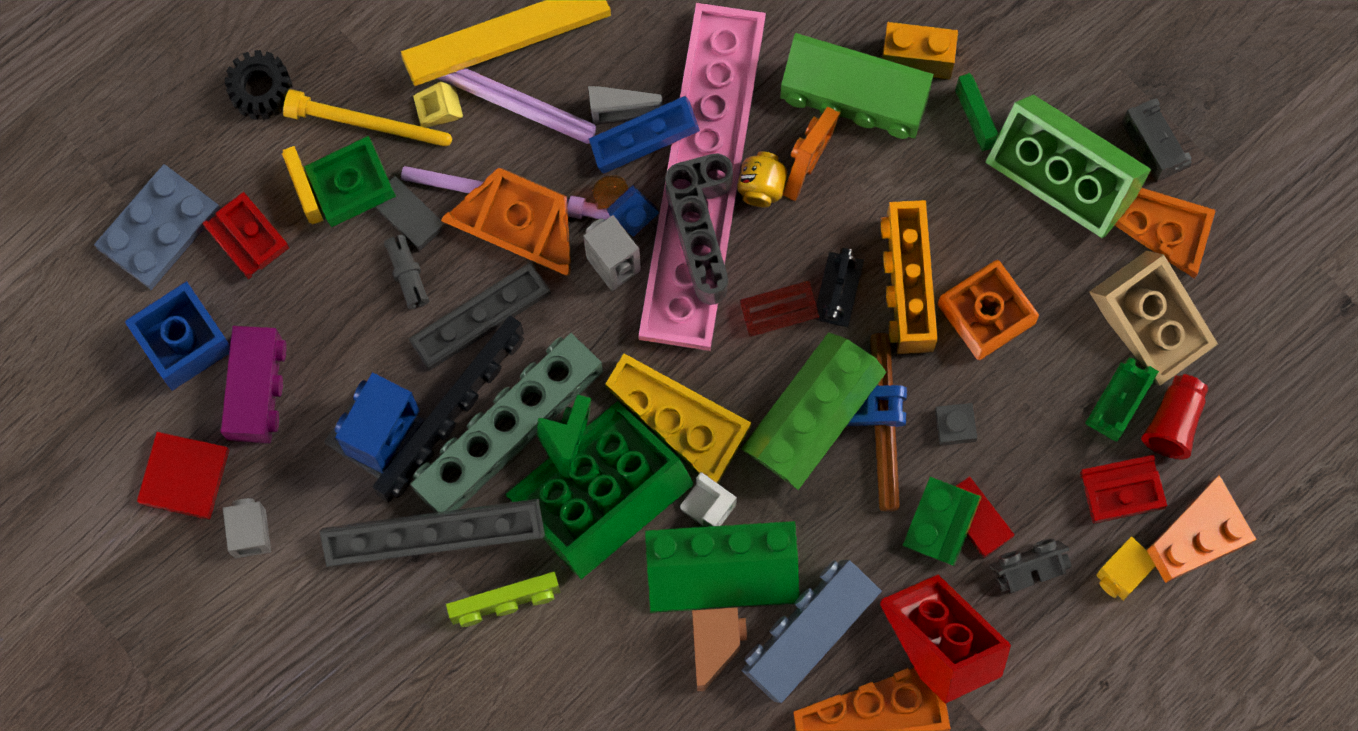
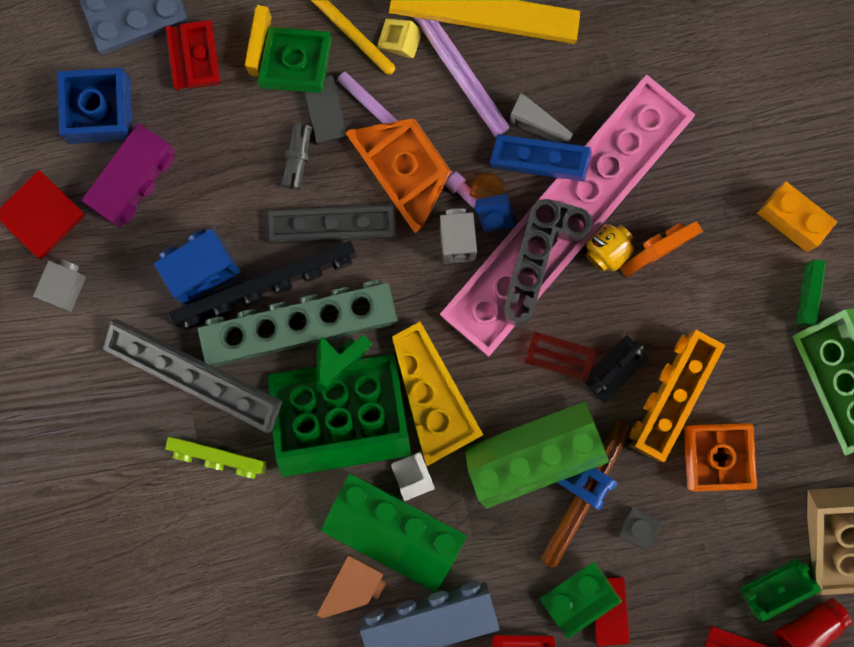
camera: 30 degrees right, 10 degrees up
(856, 85) = (729, 218): bright green slope -> none

